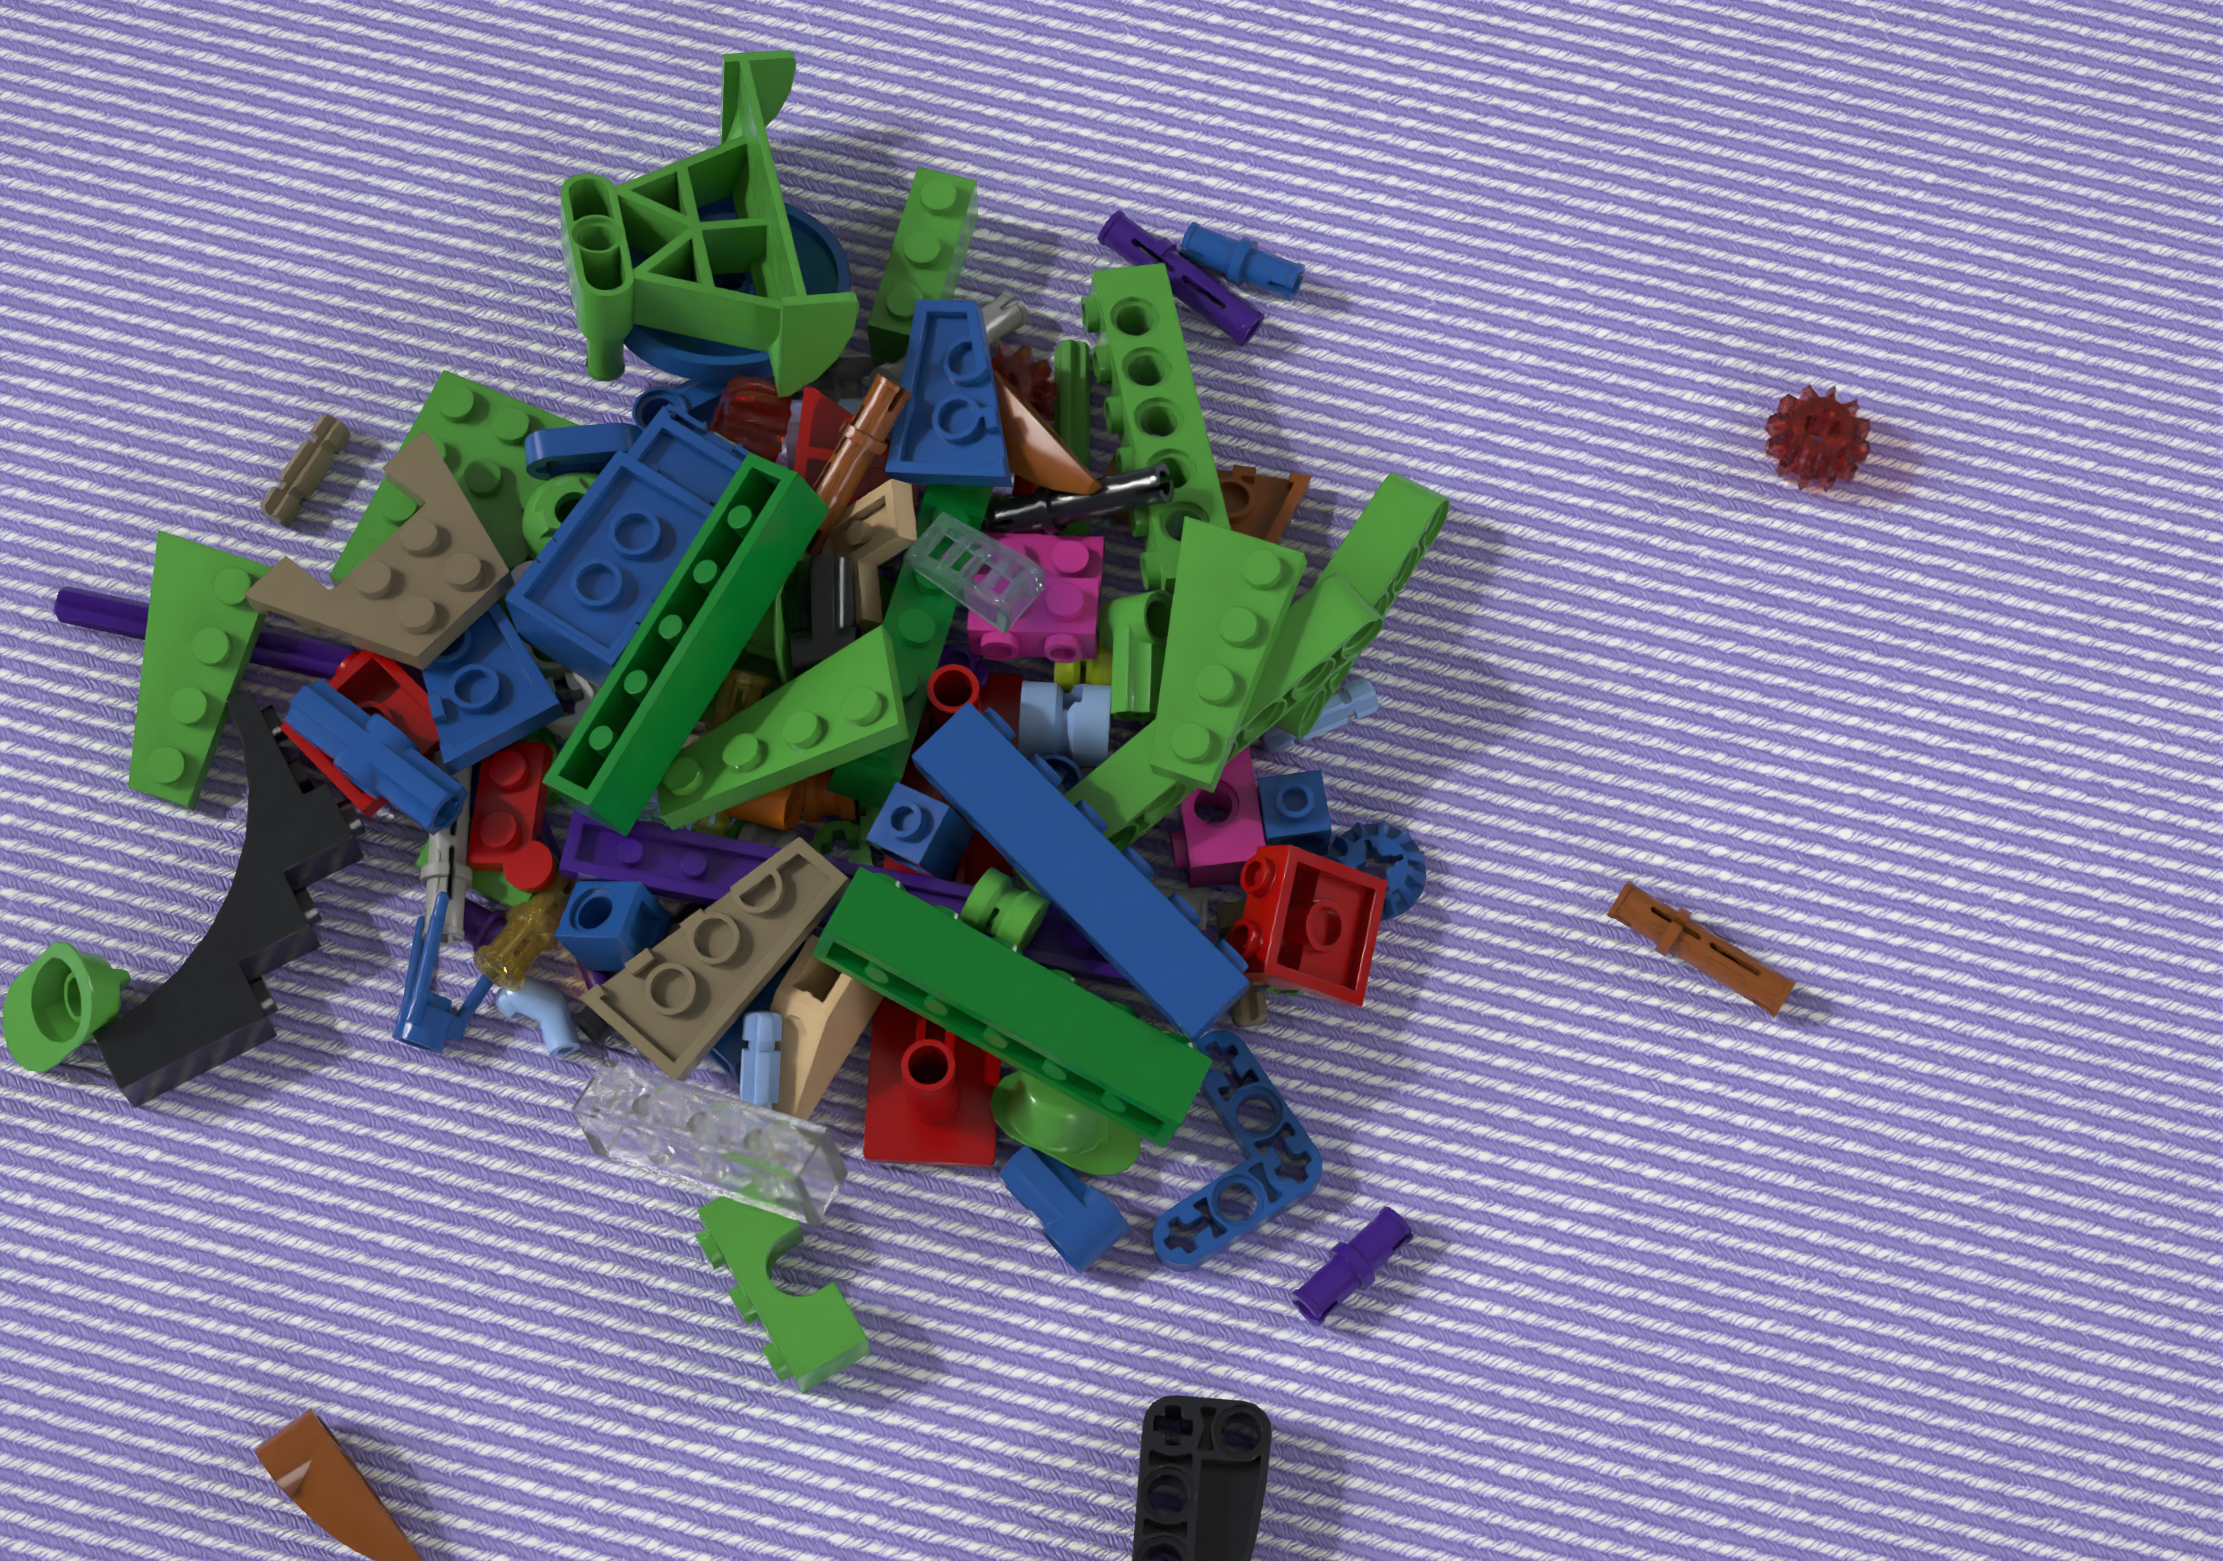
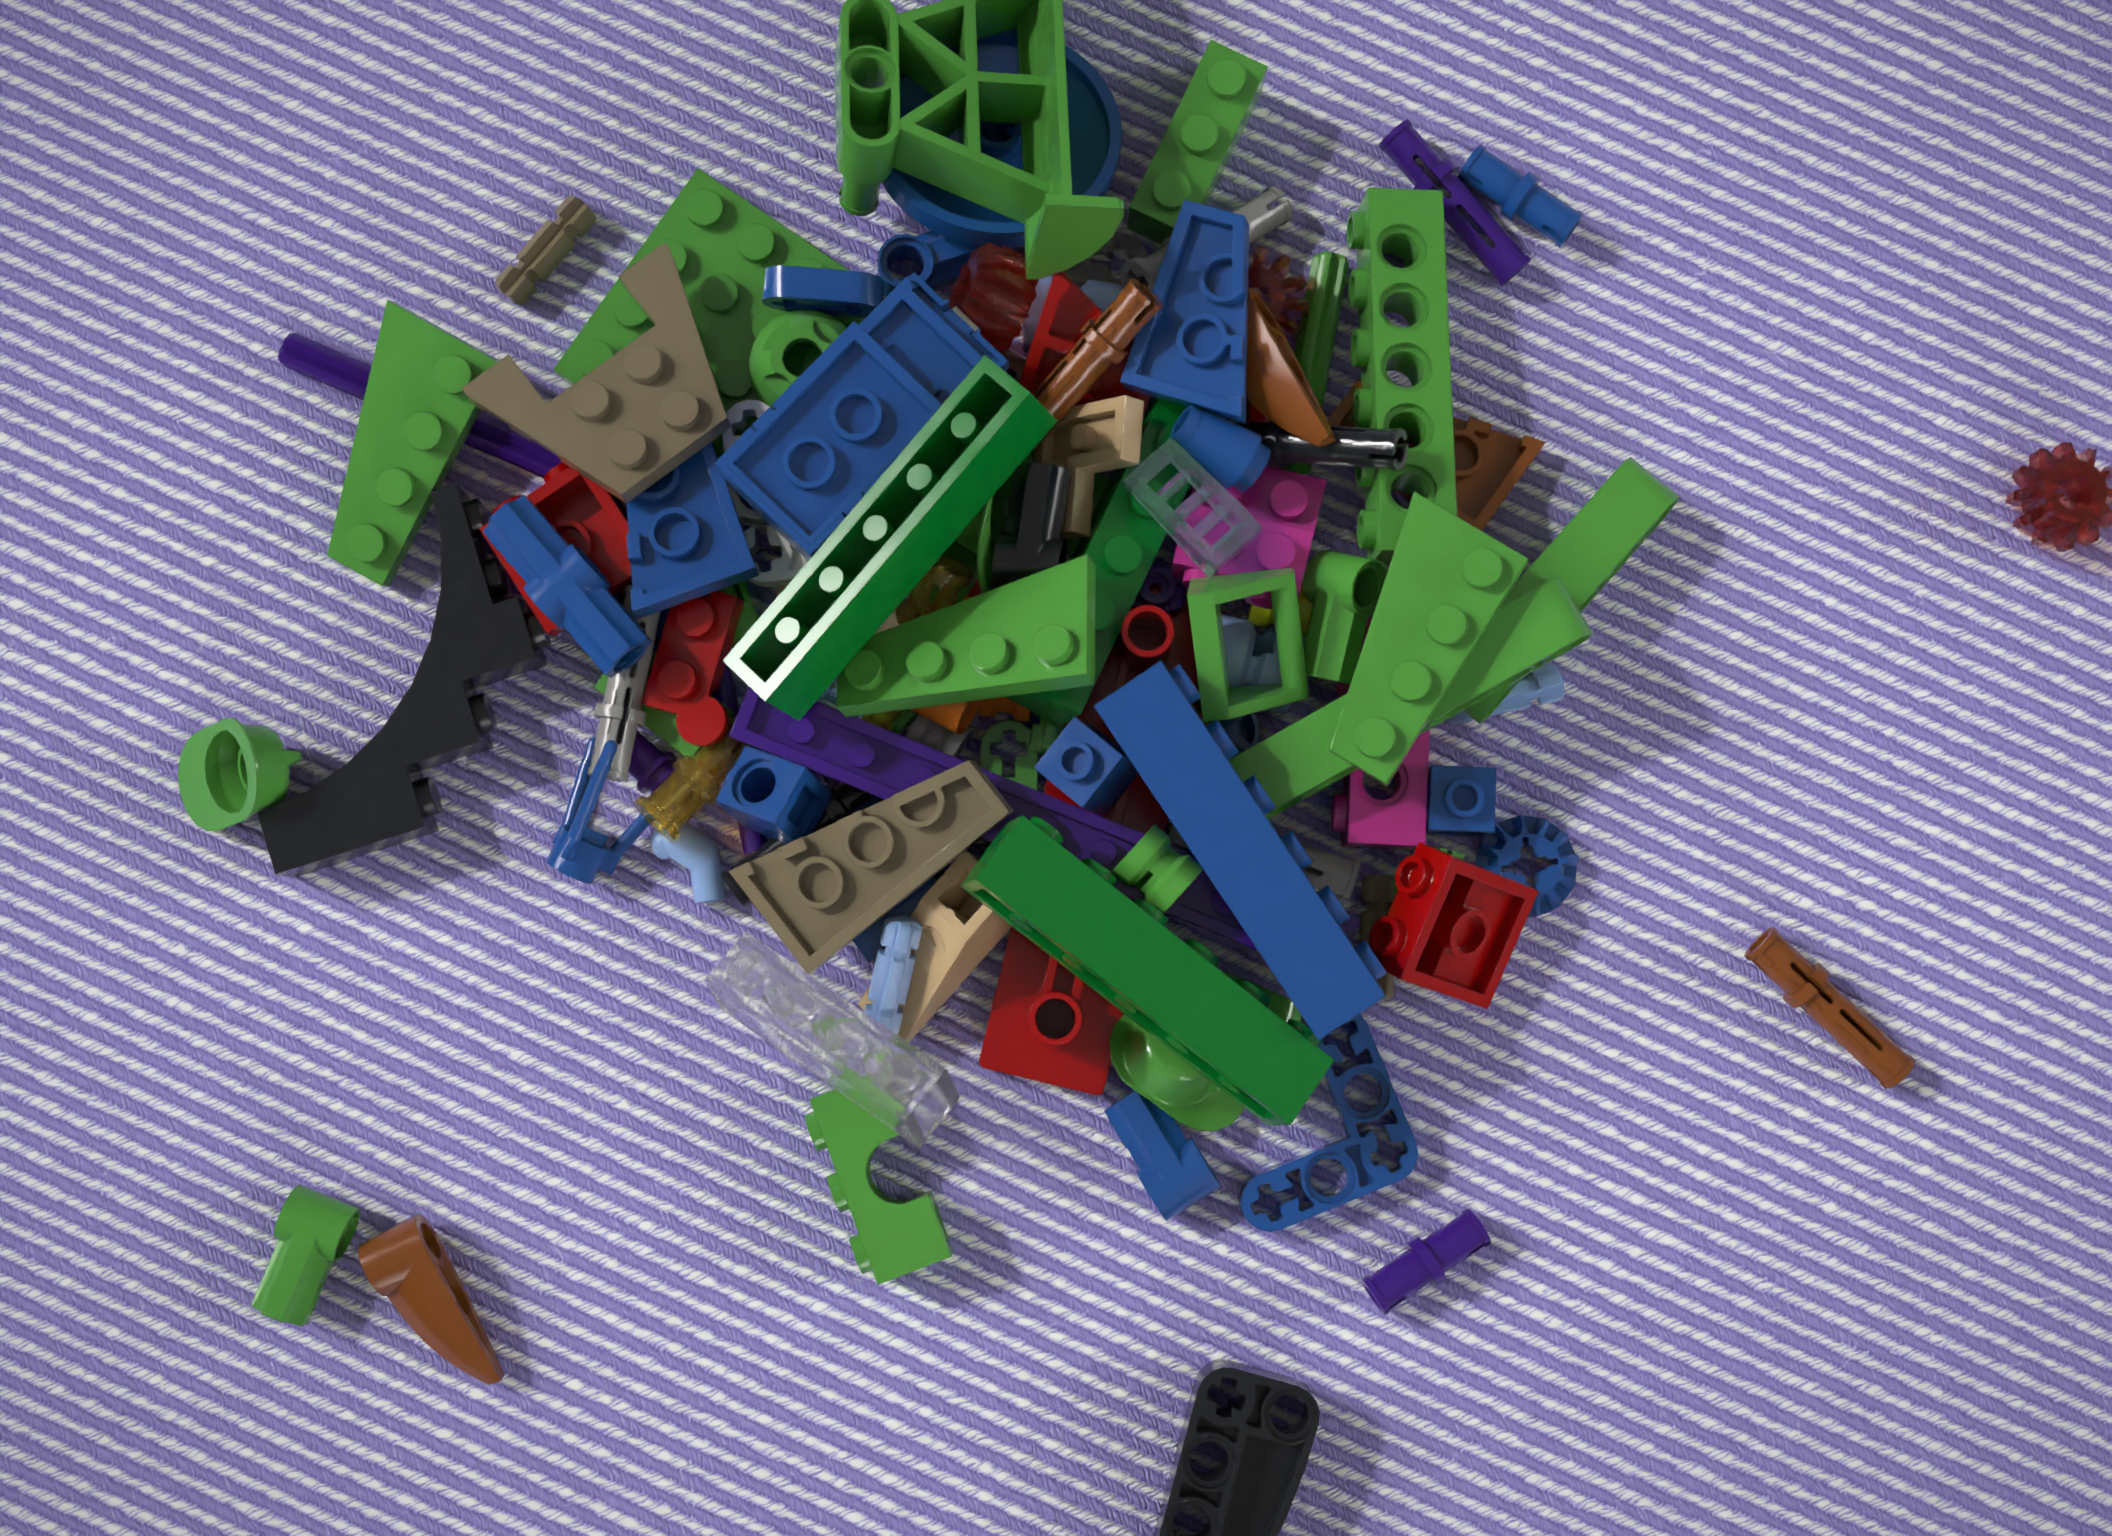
camera: 10 degrees right, 15 degrees up
(202, 1453) = (311, 1236): none -> bright green piece
(994, 512) = (1221, 447): none -> blue cone
(1018, 697) = (1204, 601): none -> bright green tile

